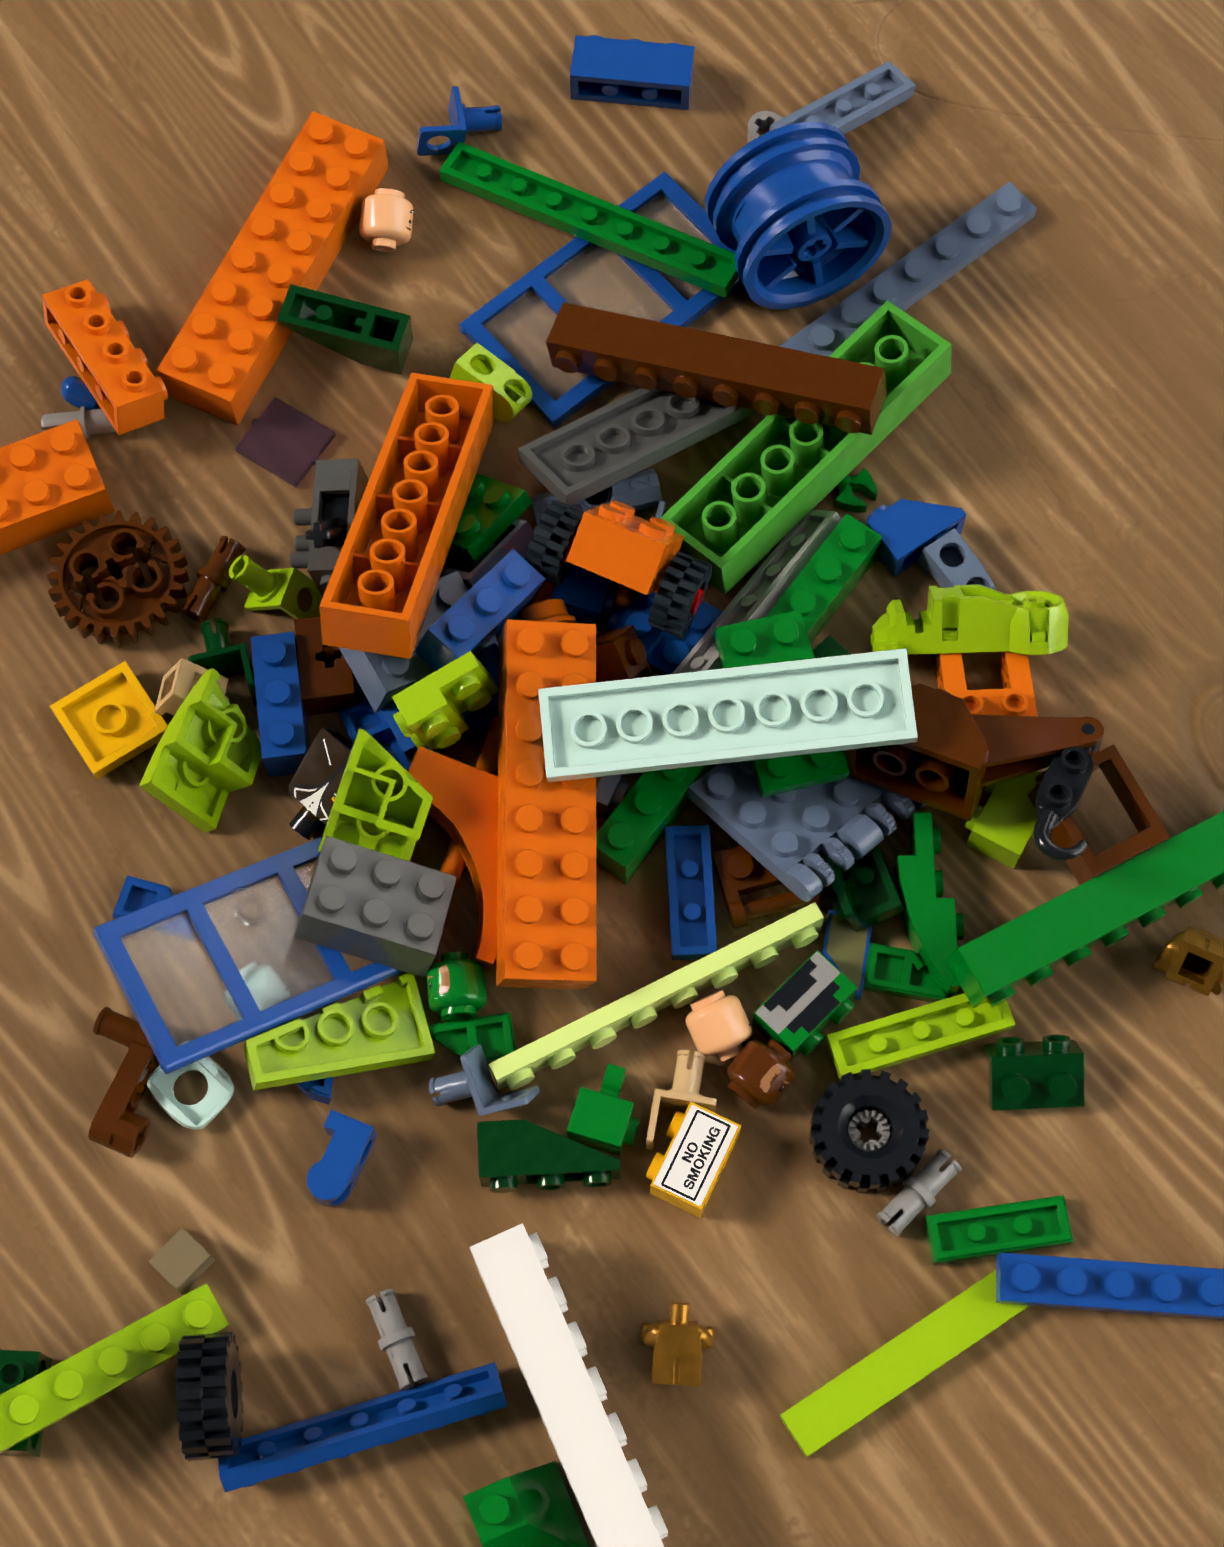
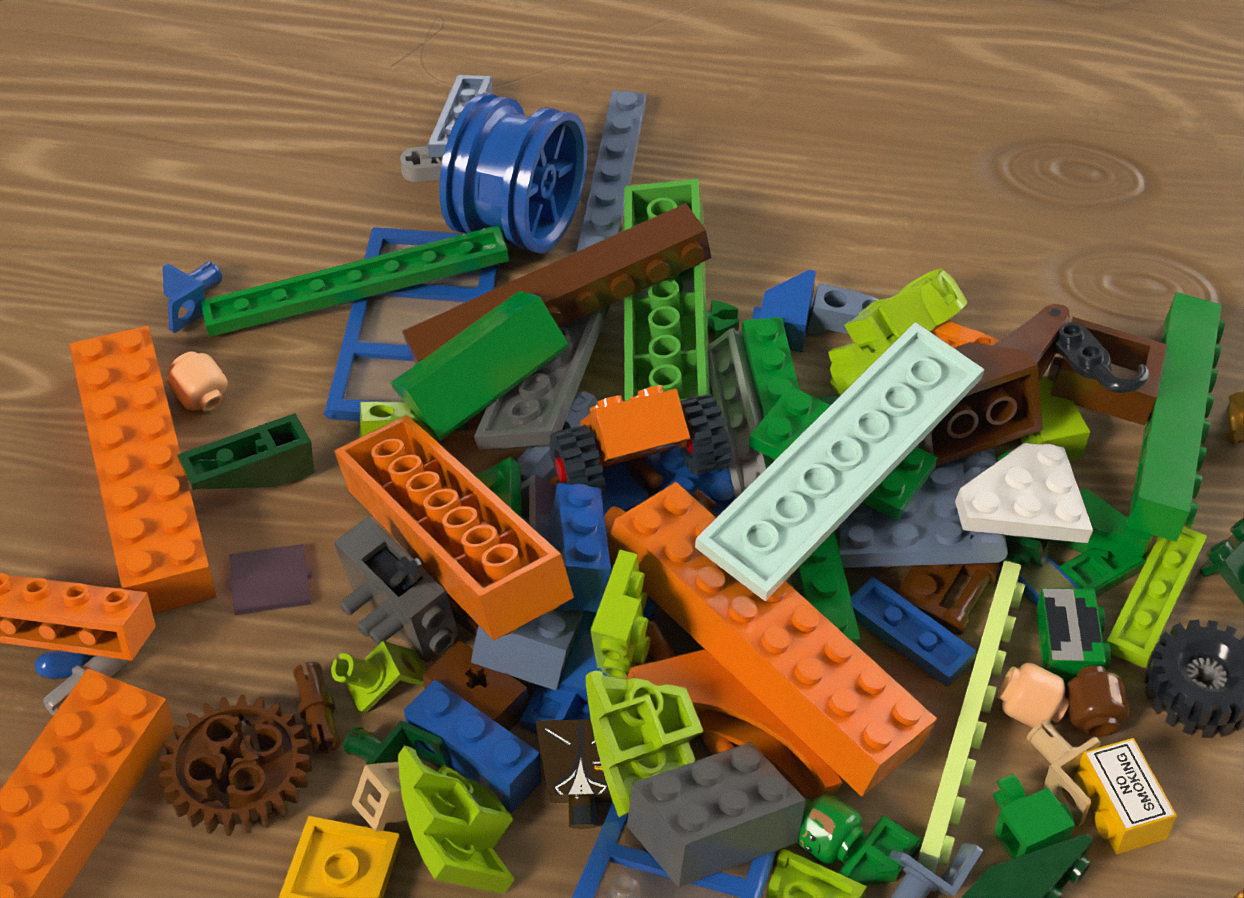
camera: 45 degrees left, 20 degrees down
(582, 386) = (481, 363): none -> green slope
(632, 72) = (285, 185): blue brick -> none
(883, 866) = (1026, 496): none -> white plate

